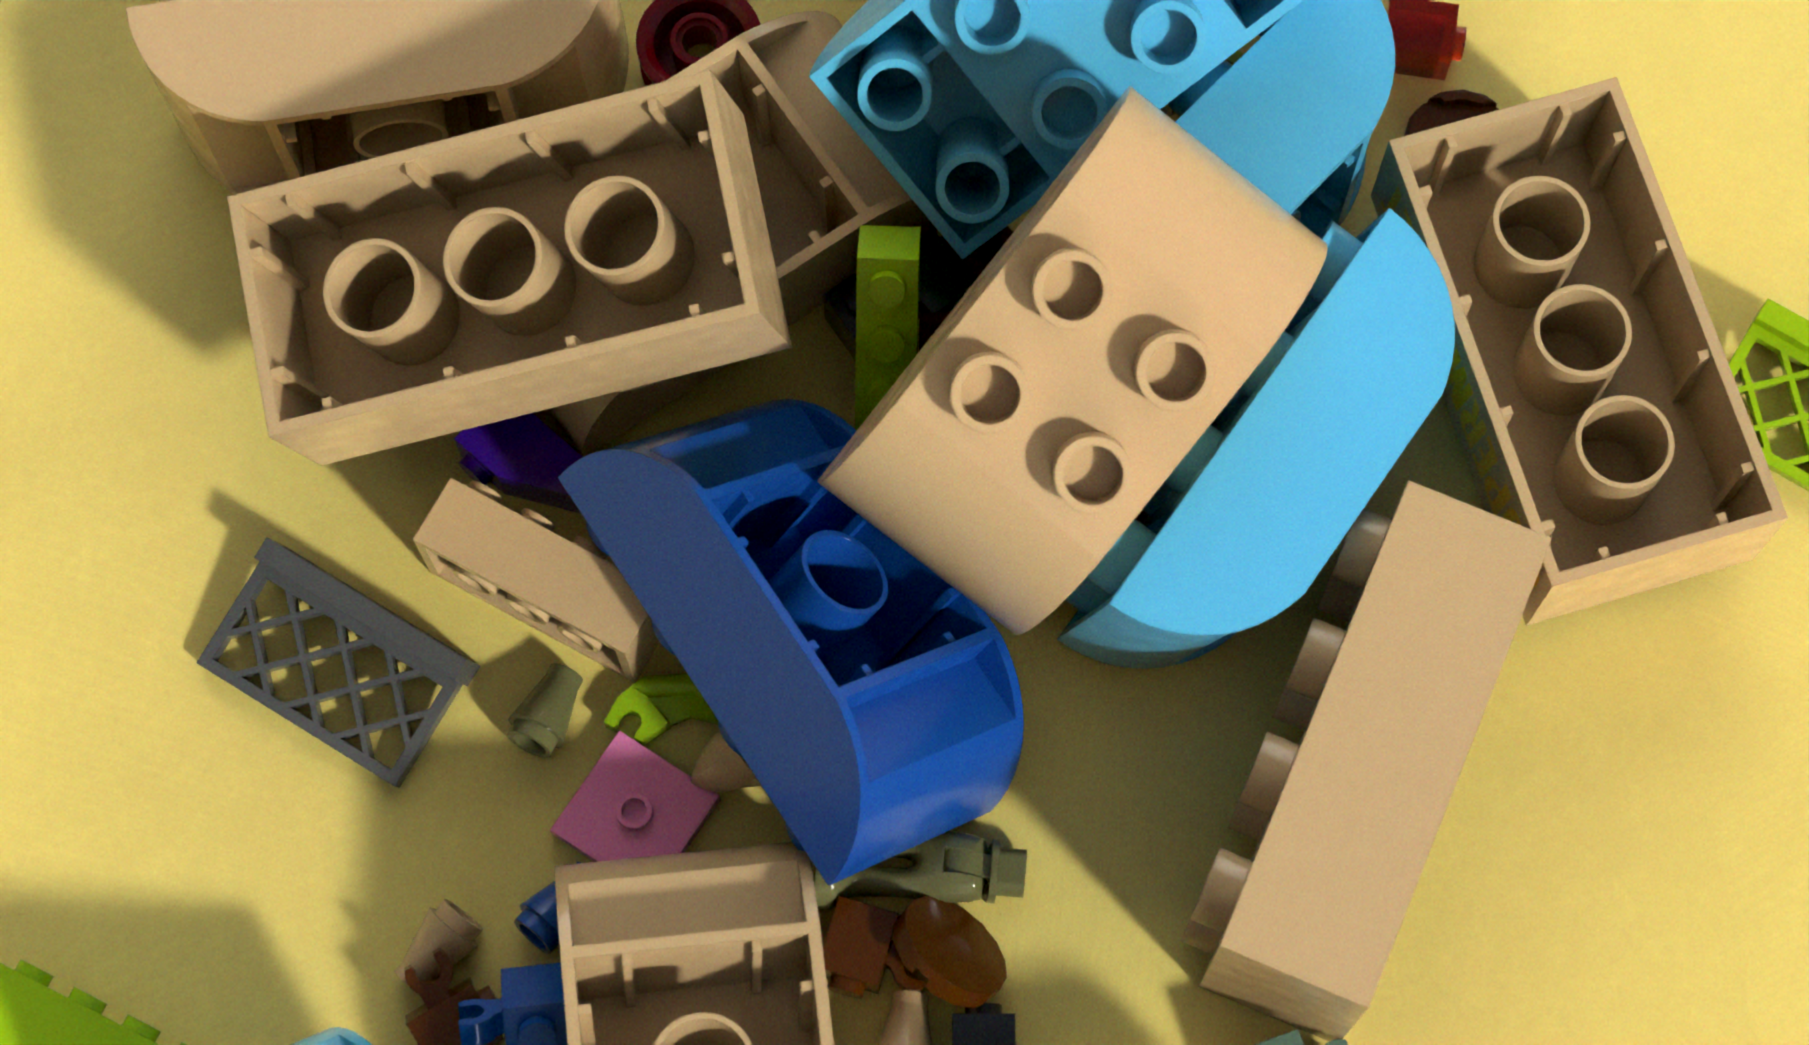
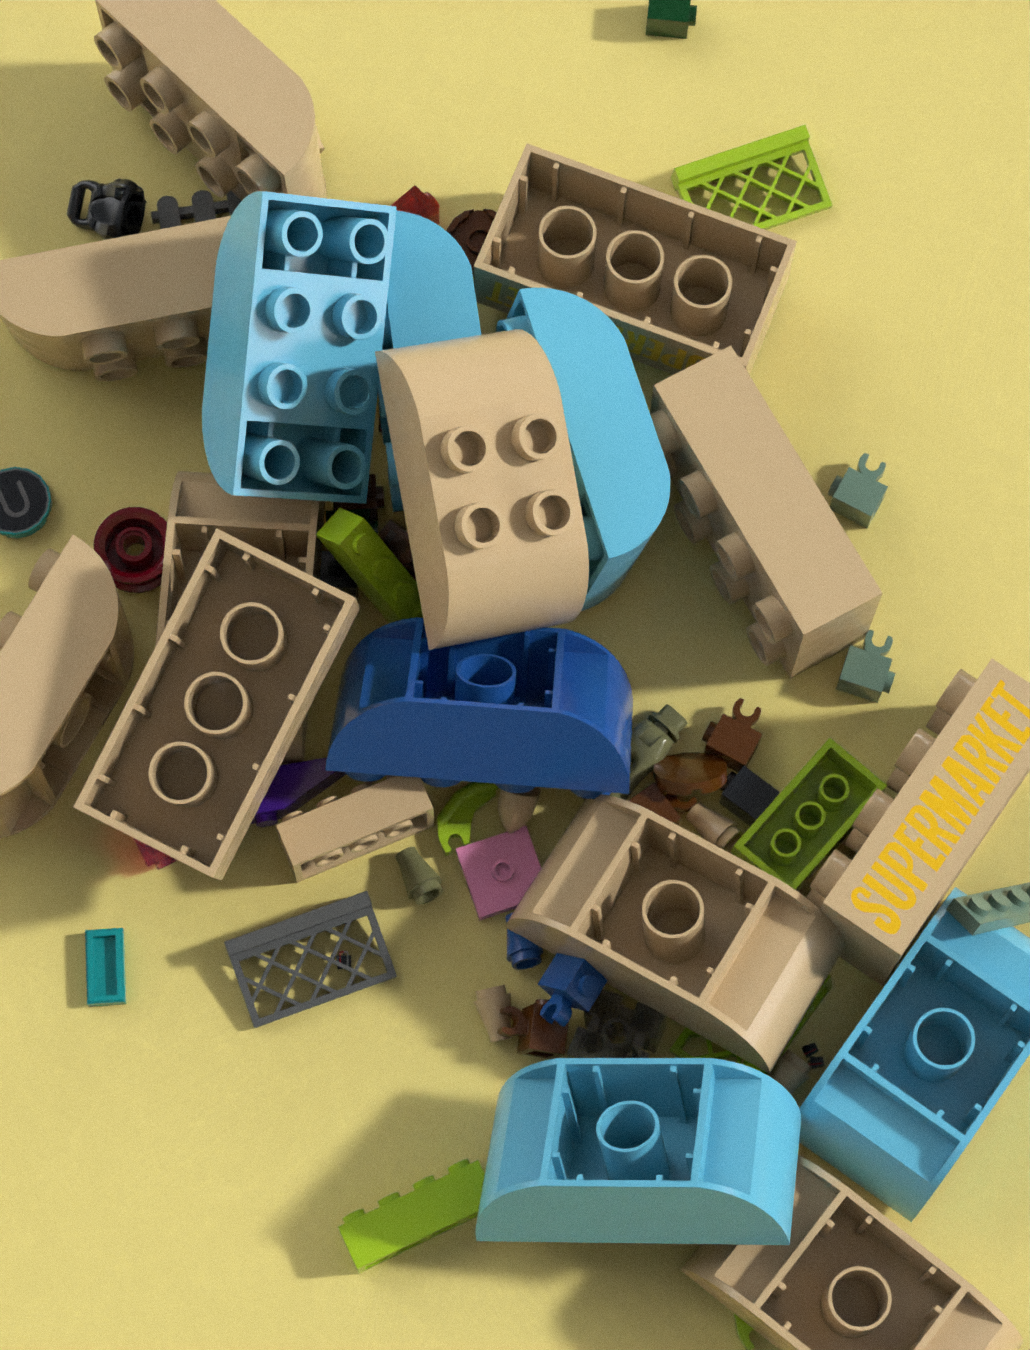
camera: 55 degrees left, 0 degrees up
(145, 427) = (105, 967): none -> teal tile
(371, 705) = (344, 959): none -> piece
(1044, 975) = (733, 737): none -> reddish brown brick
(1524, 881) = (858, 493): none -> sand green brick

